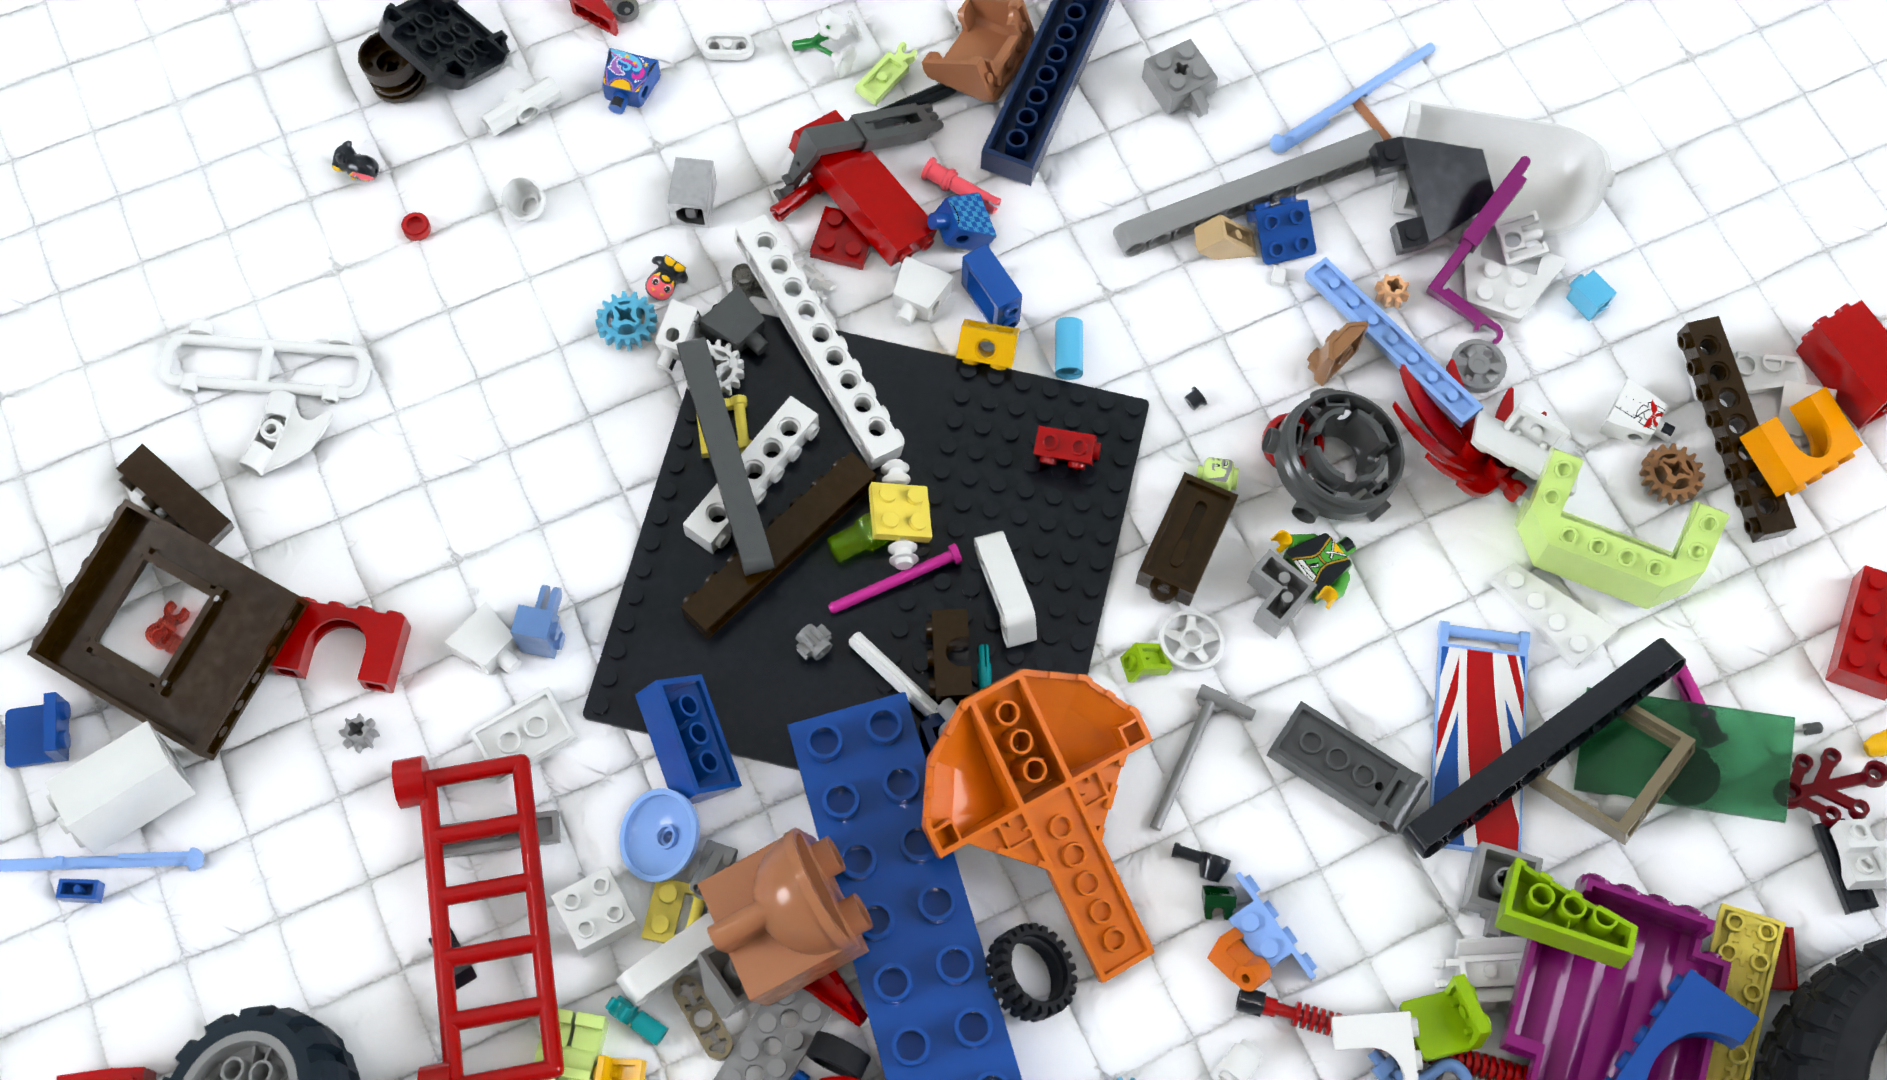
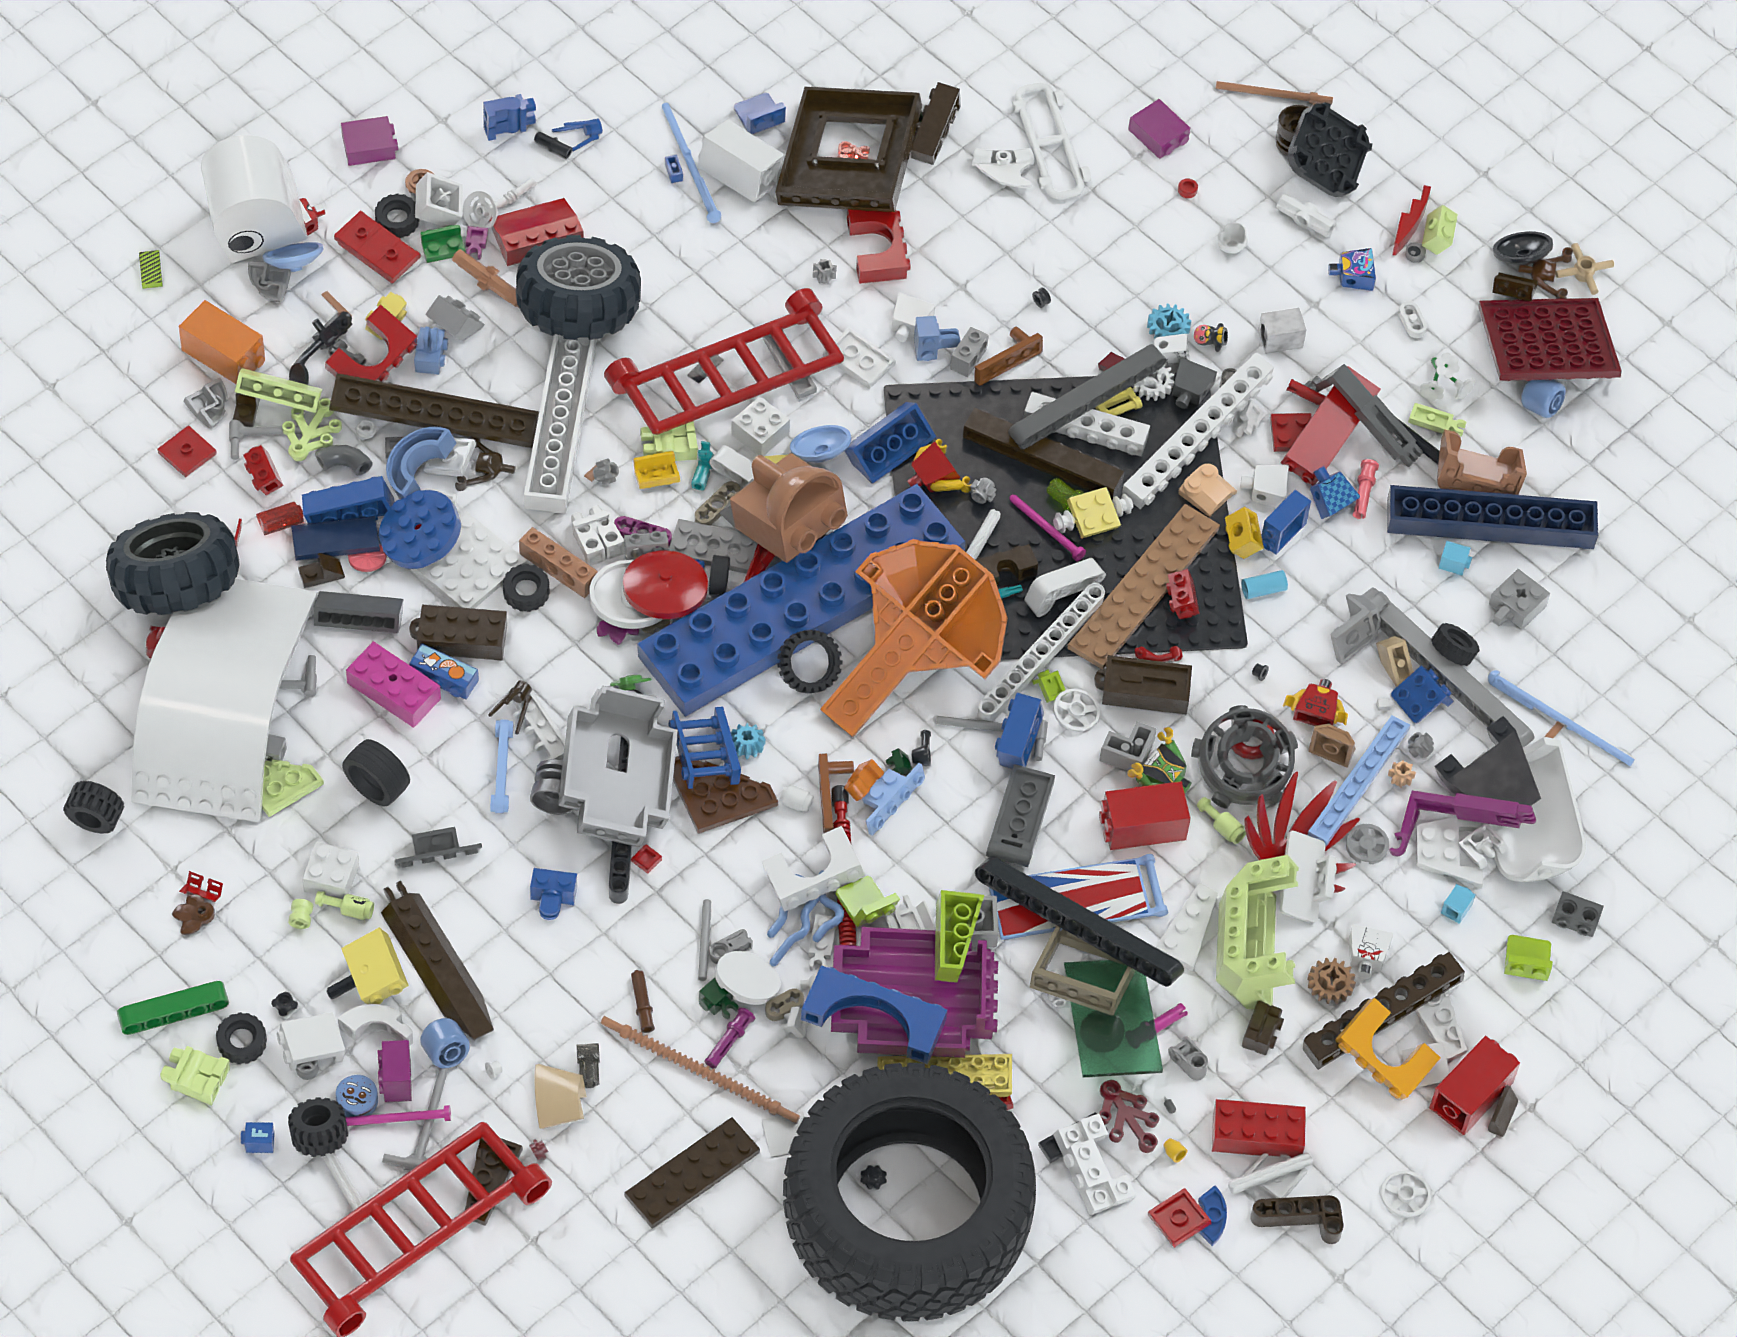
camera: 70 degrees right, 10 degrees down
(310, 225) = (1159, 128): none -> magenta brick
(339, 37) = (1313, 97): none -> nougat bar
(356, 165) = (1216, 138): black animal -> none
(520, 461) = (1041, 297): none -> black bush
(576, 583) = (969, 352): none -> light grey brick
(597, 503) = (1024, 350): none -> dark orange piece
(661, 411) = (1109, 361): none -> dark red tile
(759, 693) = (936, 470): none -> red torso
(903, 365) = (1206, 489): none -> light nougat slope
(1030, 493) = (1143, 586): none -> medium nougat plate
(1096, 124) = (1455, 558): none -> medium azure brick
(1100, 640) = (1045, 644): none -> white beam
(1129, 526) = (1174, 655): none -> red piece
(1165, 244) = (1361, 626): none -> light grey plate
(1201, 1008) = (825, 769): none -> dark orange piece
(1219, 472) = (1203, 695): yellowish green head -> none
(1229, 723) = (1019, 731): none -> blue brick
(1230, 165) = (1455, 644): none -> black tyre
(1271, 347) = (1317, 705): none -> red torso
(1351, 258) = (1420, 745): none -> light grey gear
(1392, 609) = (1145, 815): none -> red brick
(1421, 514) = (1224, 823): none -> yellowish green piece
(1634, 173) = (1579, 909): none -> dark grey brick
(1681, 248) = (1528, 957): none -> lime bracket
(1729, 579) = (1262, 1027): none -> dark brown brick
(1749, 680) = (1188, 1054): none -> light grey piece

